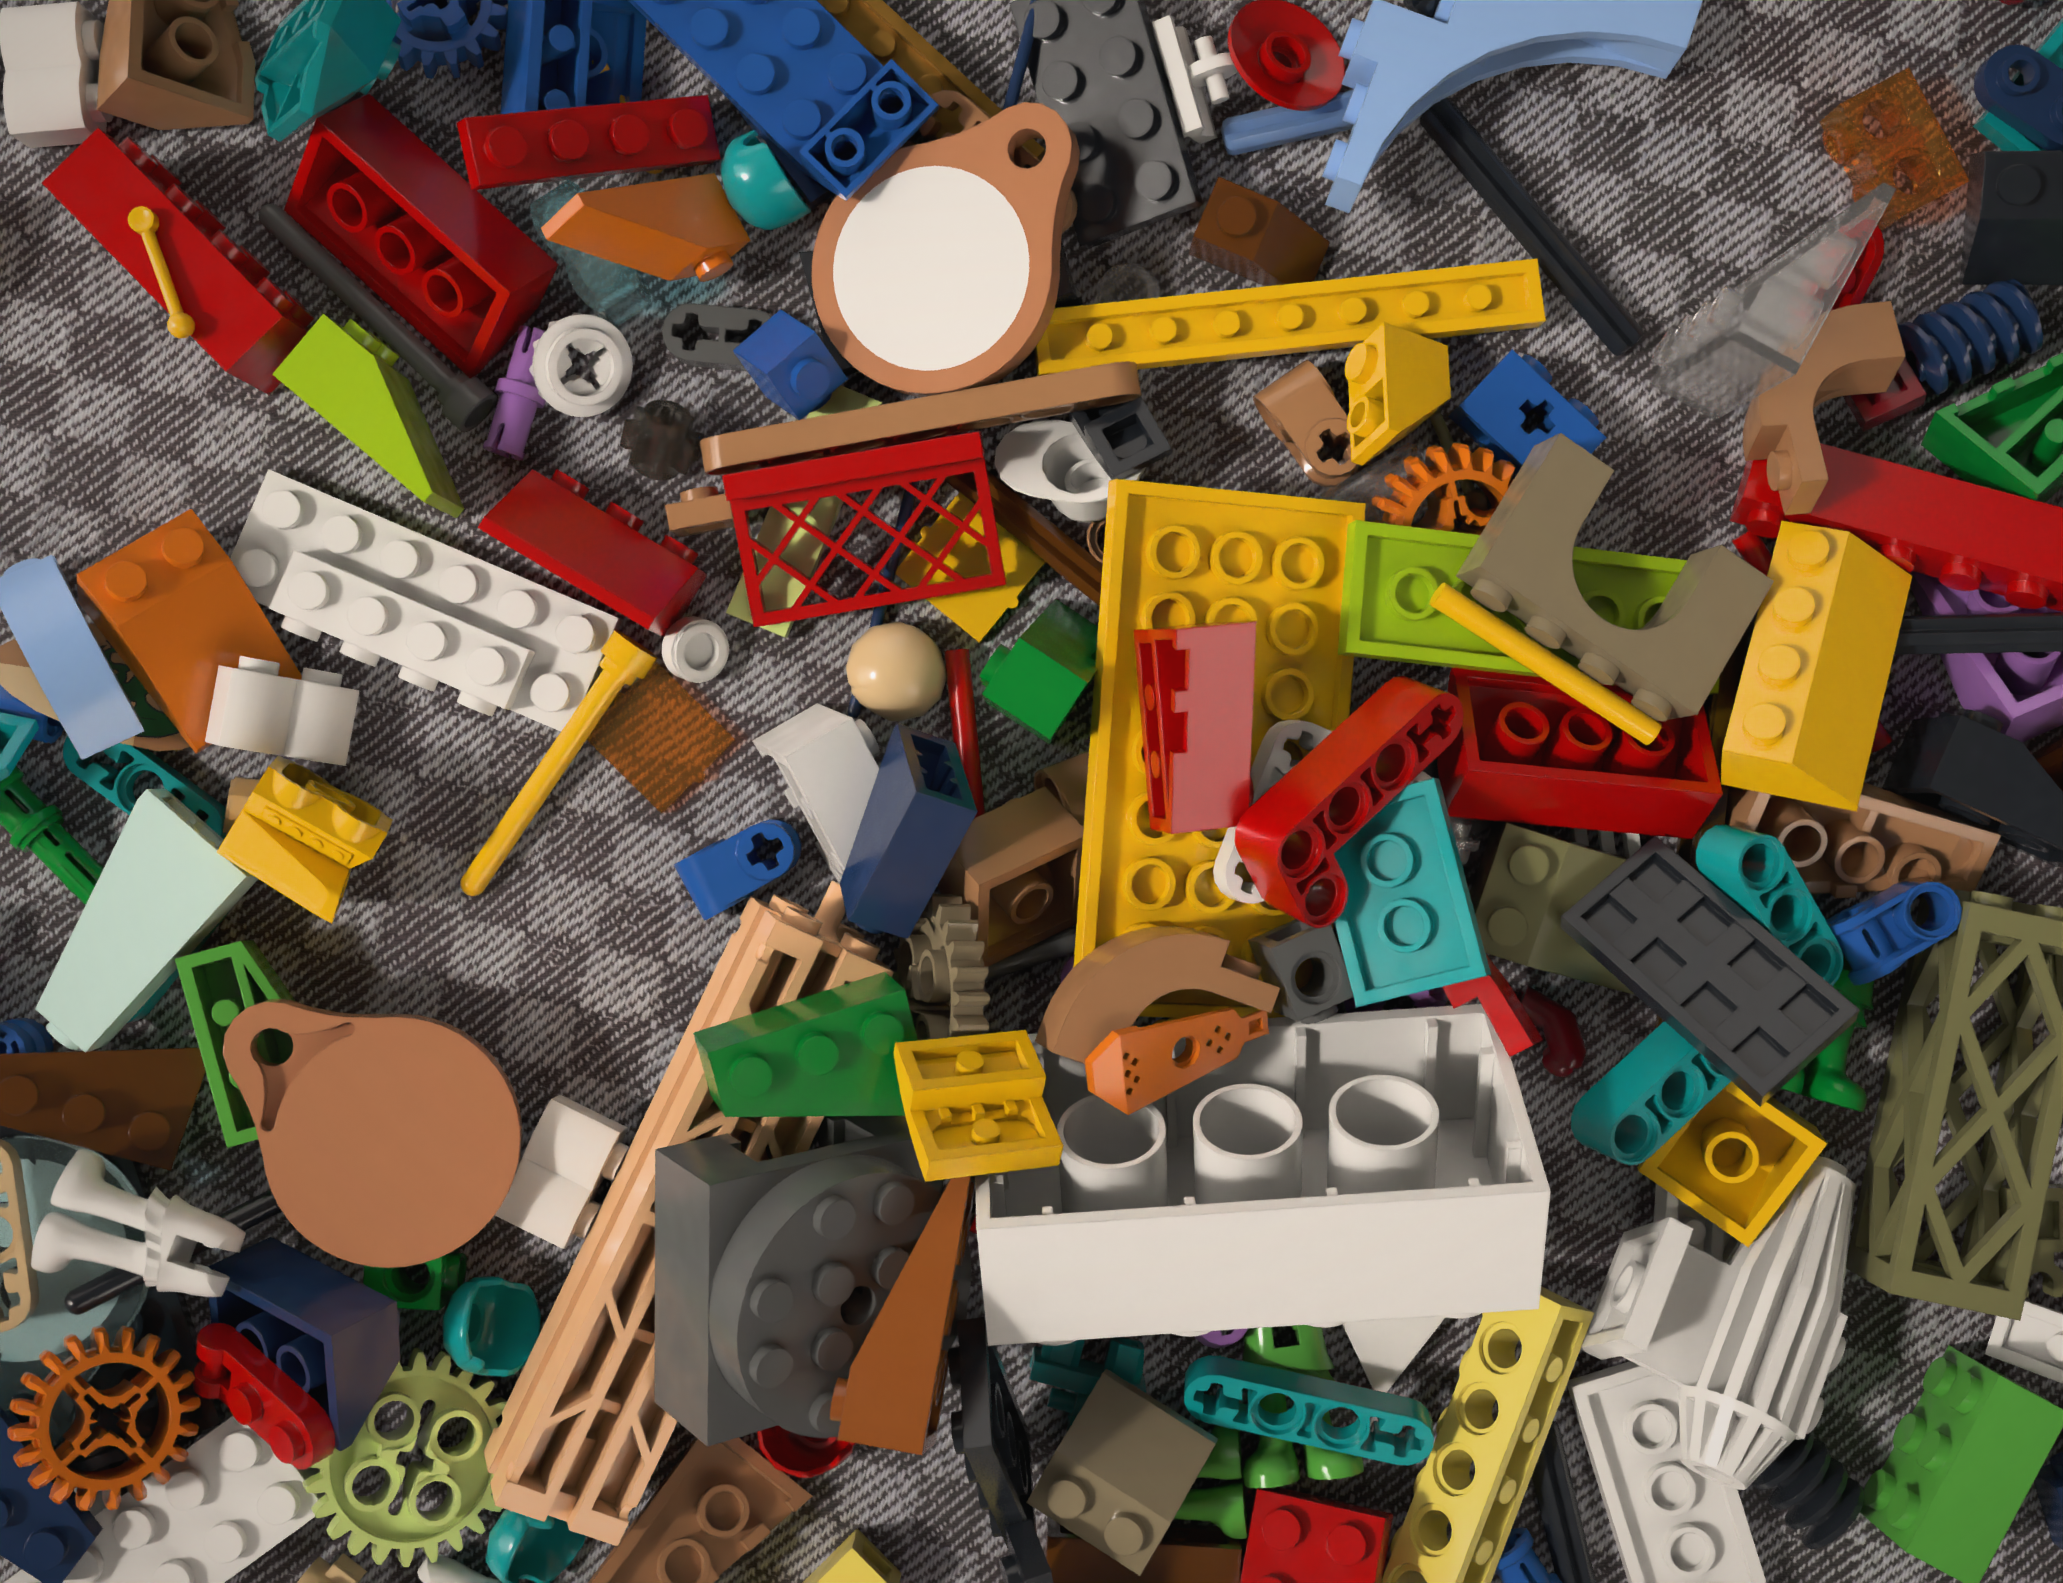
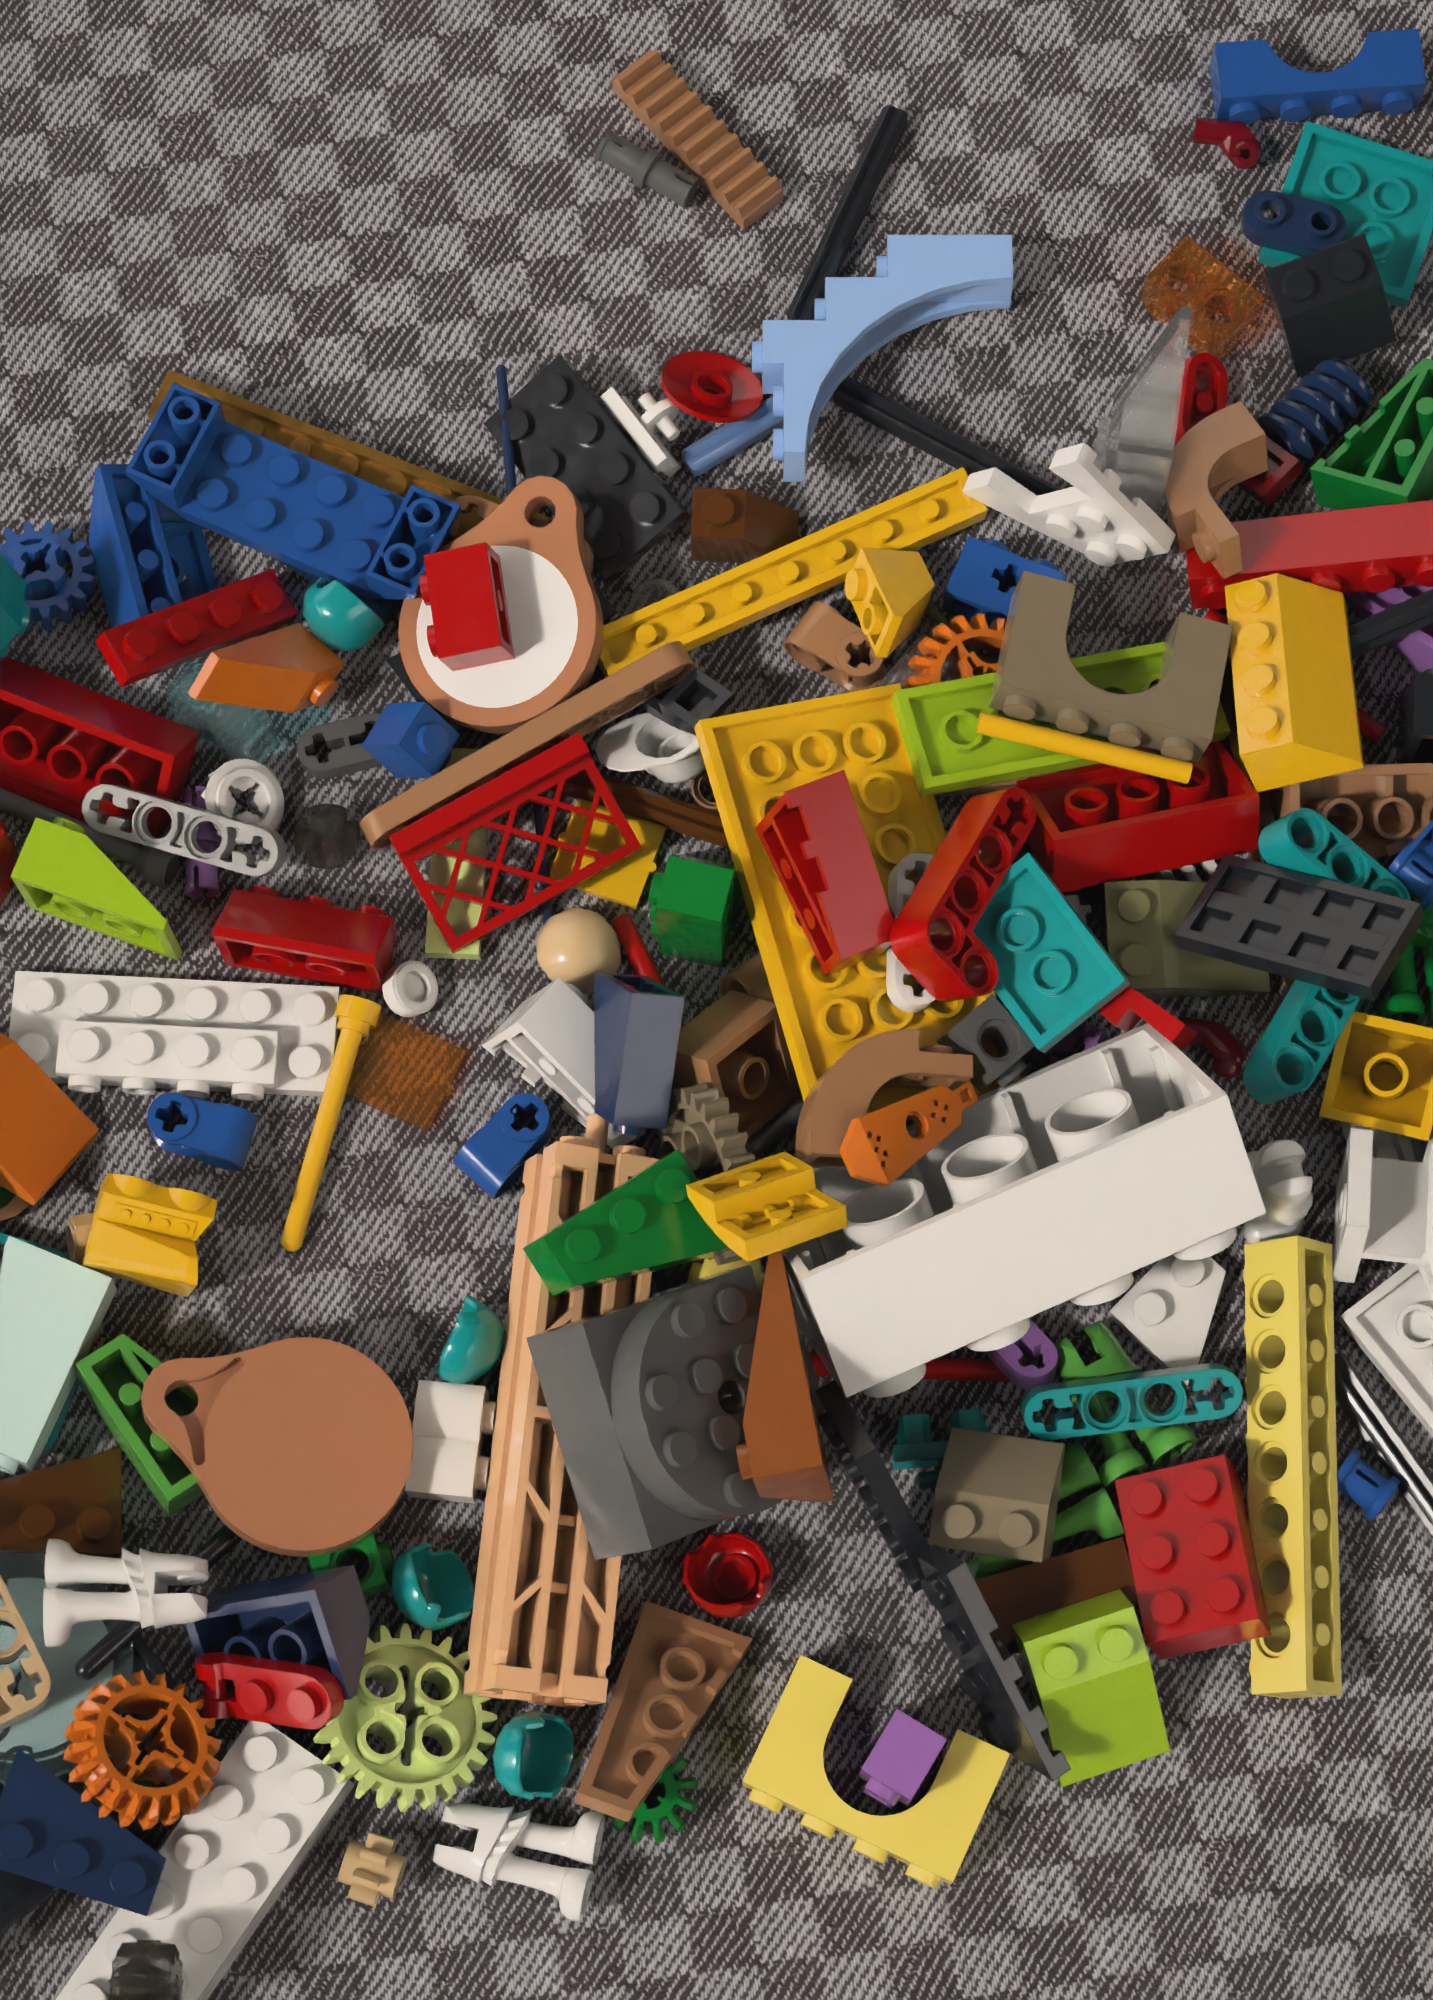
camera: 20 degrees left, 15 degrees down
(282, 714) = (82, 1147): white brick -> none
(420, 735) = (211, 1133): none -> blue piece
(501, 374) = (183, 832): none -> light grey beam
(624, 1078) = (472, 1344): none -> teal hair
(699, 512) = (379, 880): medium nougat plate -> none
(901, 235) = (466, 607): none -> red brick
(1571, 1235) = (1282, 1189): none -> white piece
(1659, 378) = (1086, 517): none -> white wing

